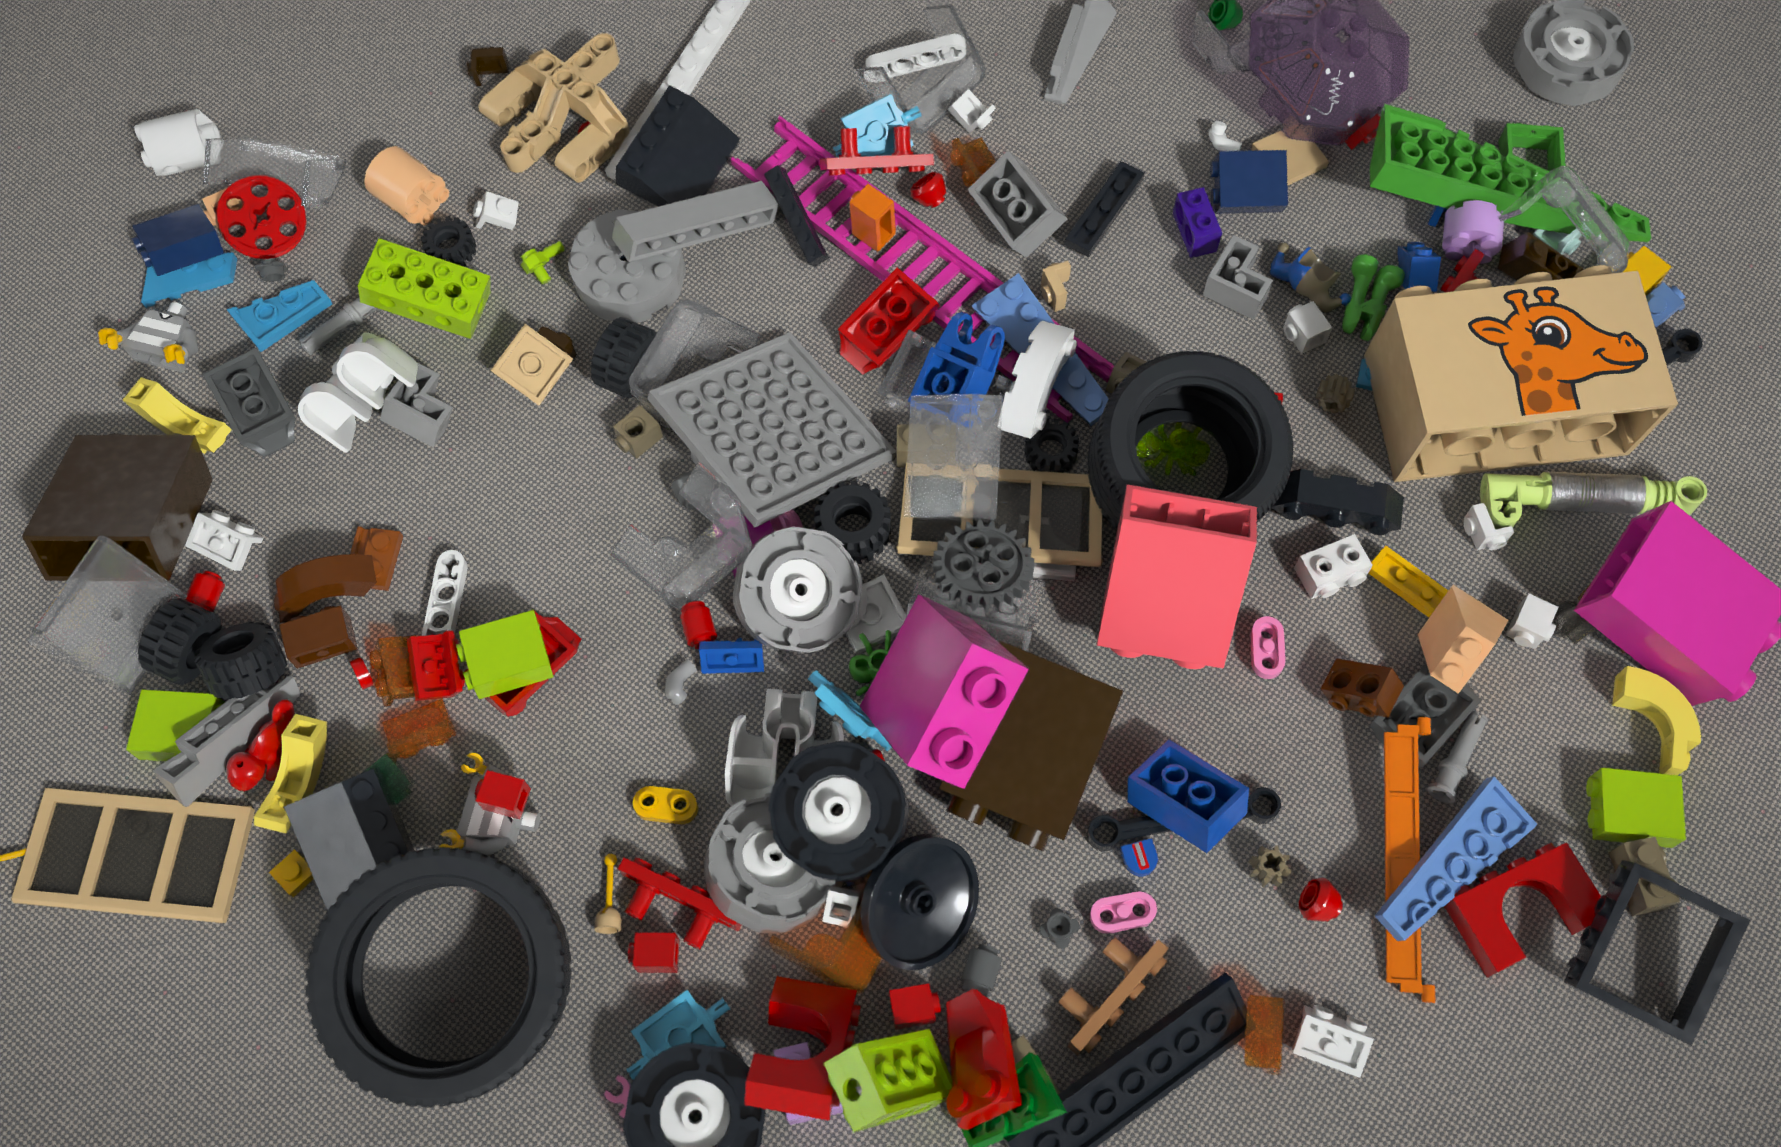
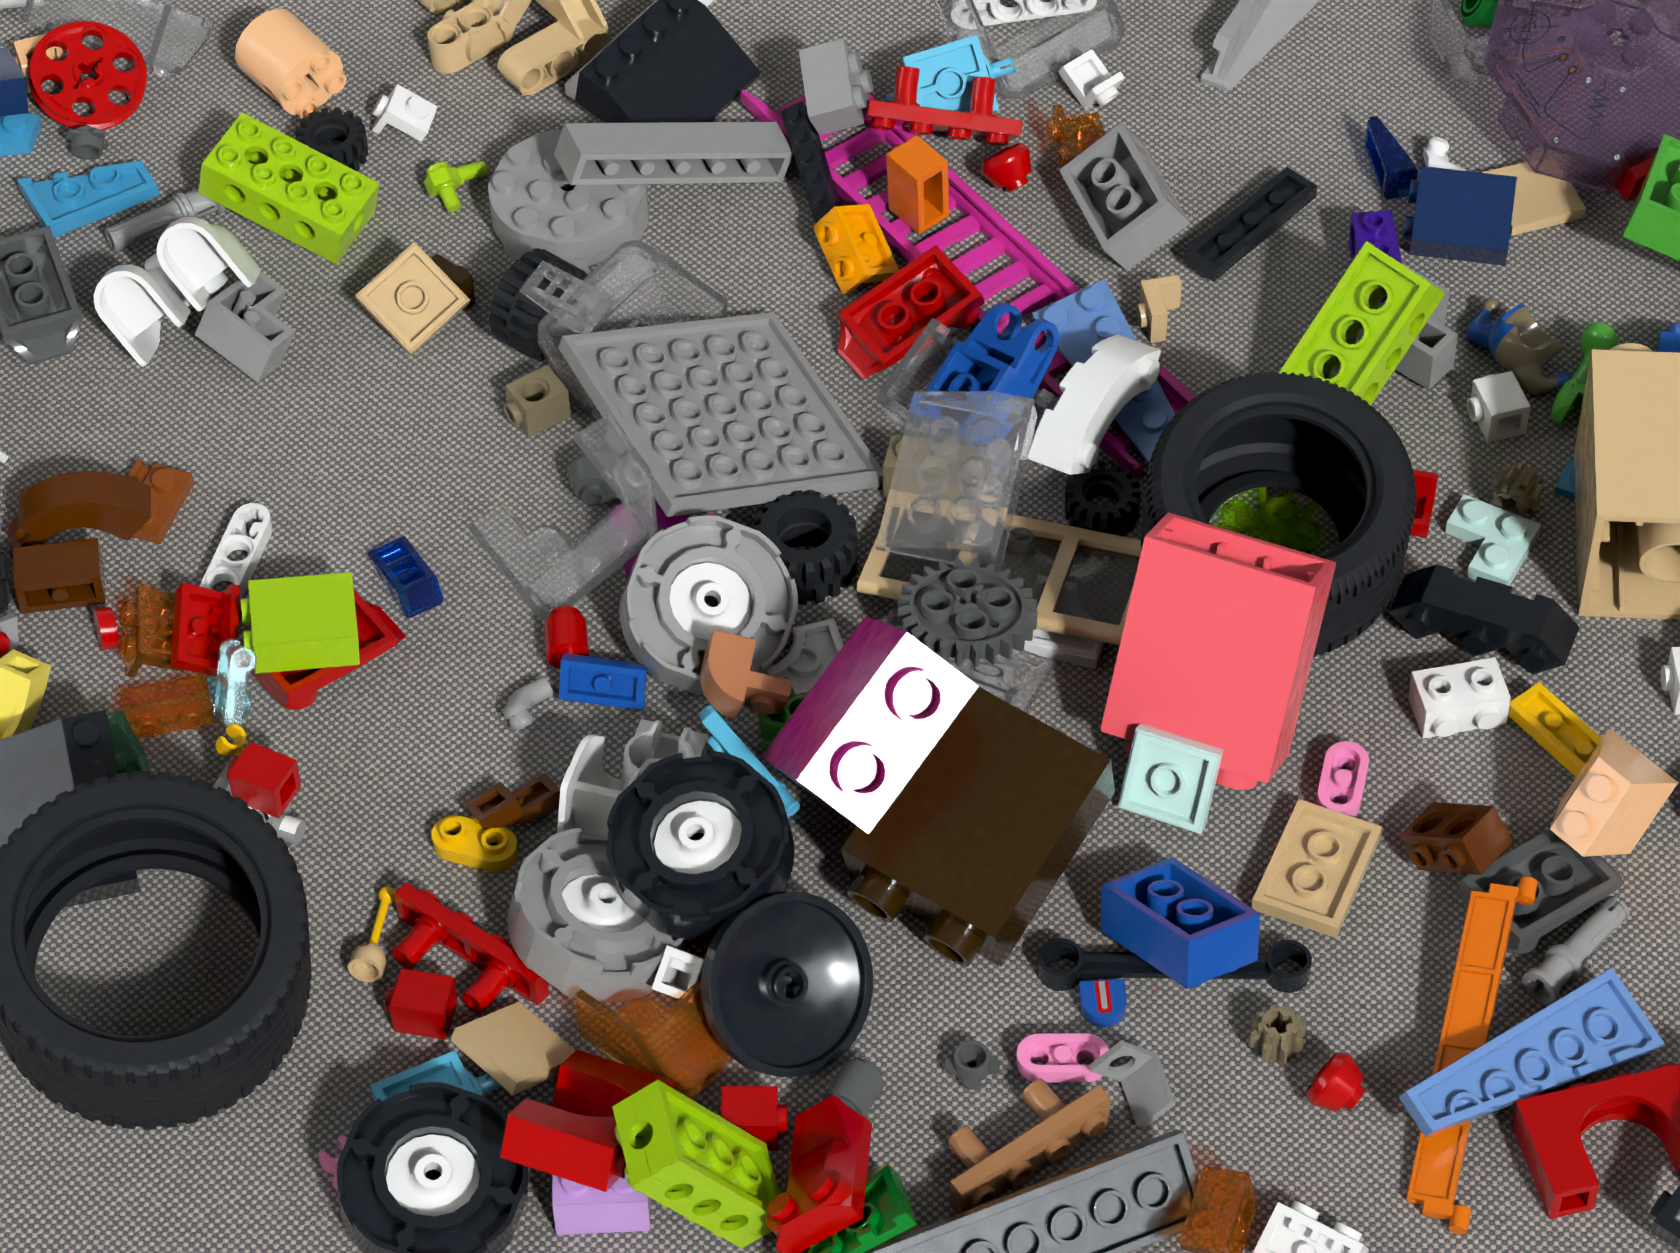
camera: 10 degrees right, 15 degrees down
(463, 715) = (231, 696): none -> clear light blue plate
(580, 605) = (408, 579): none -> clear blue slope
(651, 372) = (584, 293): none -> clear slope
(681, 775) = (503, 808): none -> reddish brown slope
(730, 980) = (513, 1047): none -> tan tile
(799, 150) = (834, 86): none -> light grey brick
(825, 653) = (730, 683): none -> nougat brick
(837, 271) = (855, 246): none -> light orange bracket
(1152, 671) = (1170, 778): none -> light aqua tile
(1185, 926) = (1141, 1080): none -> light grey bracket
(1188, 144) = (1389, 161): none -> clear blue slope
(1228, 290) = (1356, 308): none -> lime brick
(1266, 722) = (1317, 868): none -> tan plate
(1330, 428) = (1501, 535): none -> light aqua plate

